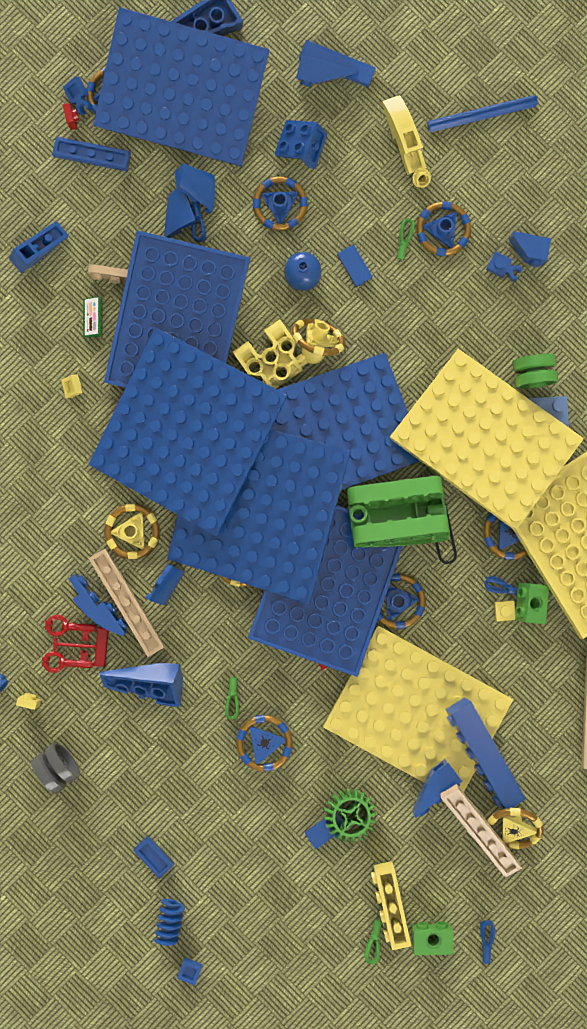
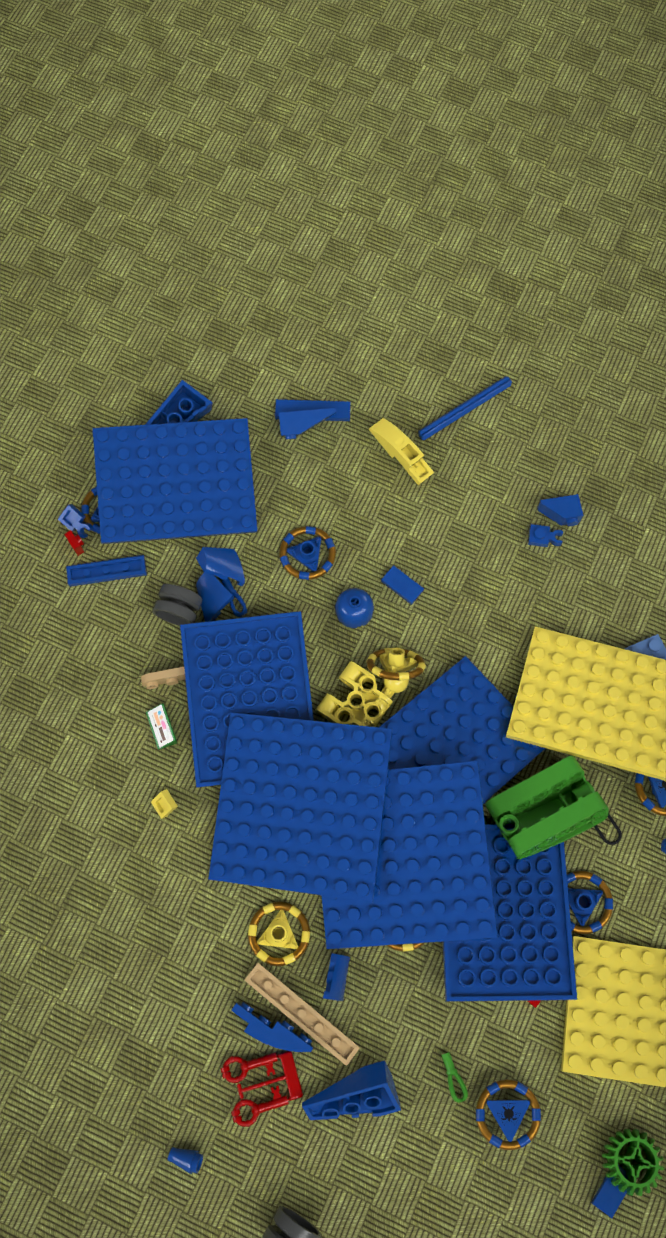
camera: 20 degrees left, 15 degrees down
(28, 701) = (234, 1169): light yellow plate -> none
(37, 246) = (82, 677): blue slope -> none
(142, 210) = (177, 605): none -> dark grey wheel
(301, 141) = (306, 489): blue bracket -> none
(404, 244) = (440, 548): bright green piece -> none
(424, 181) = (437, 484): light yellow plate -> none
(443, 228) = (472, 521): blue piece -> none
(535, 371) = (618, 620): bright green wheel -> none

